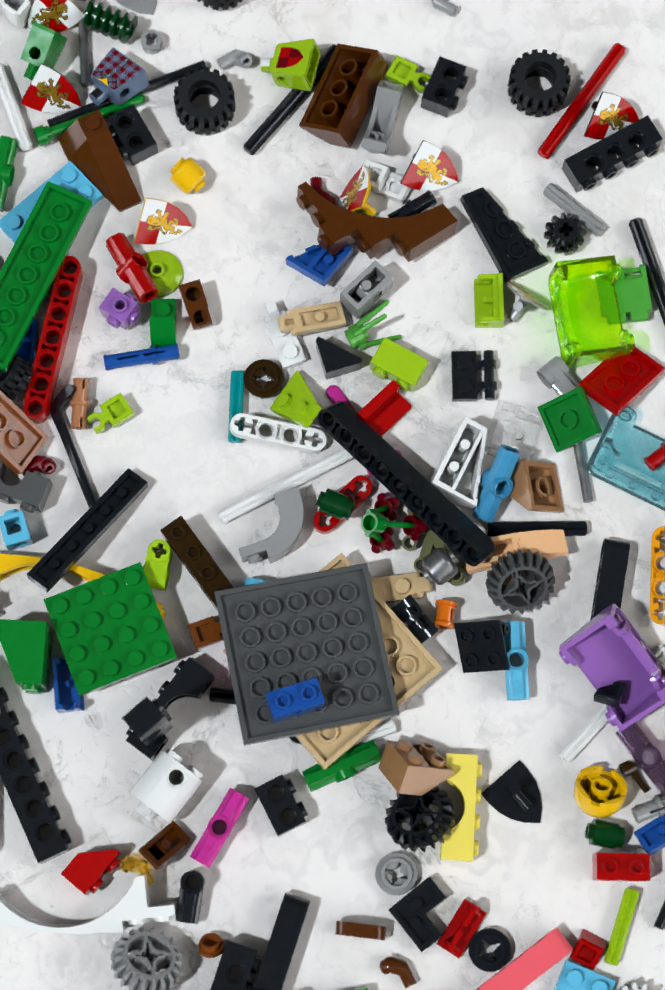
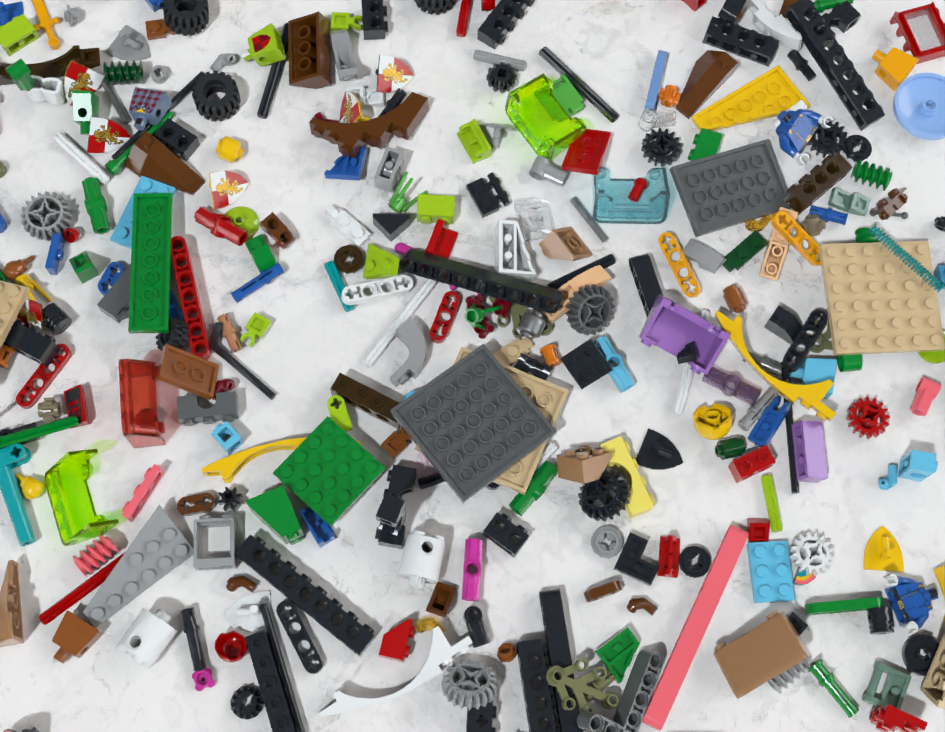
camera: 30 degrees left, 5 degrees down
(87, 530) = (279, 413): black plate -> none
(120, 309) = (226, 257): medium lavender brick -> none
(294, 700) = (483, 454): blue brick -> none
(312, 319) = (362, 204): tan hinge -> none
(335, 504) = (441, 317): dark green brick -> none
(496, 483) = (541, 253): dark azure piece -> none
(504, 242) = (459, 97): black wing -> none
(569, 419) = (567, 192): green tile -> none
(630, 768) = (724, 398): dark brown hand -> none

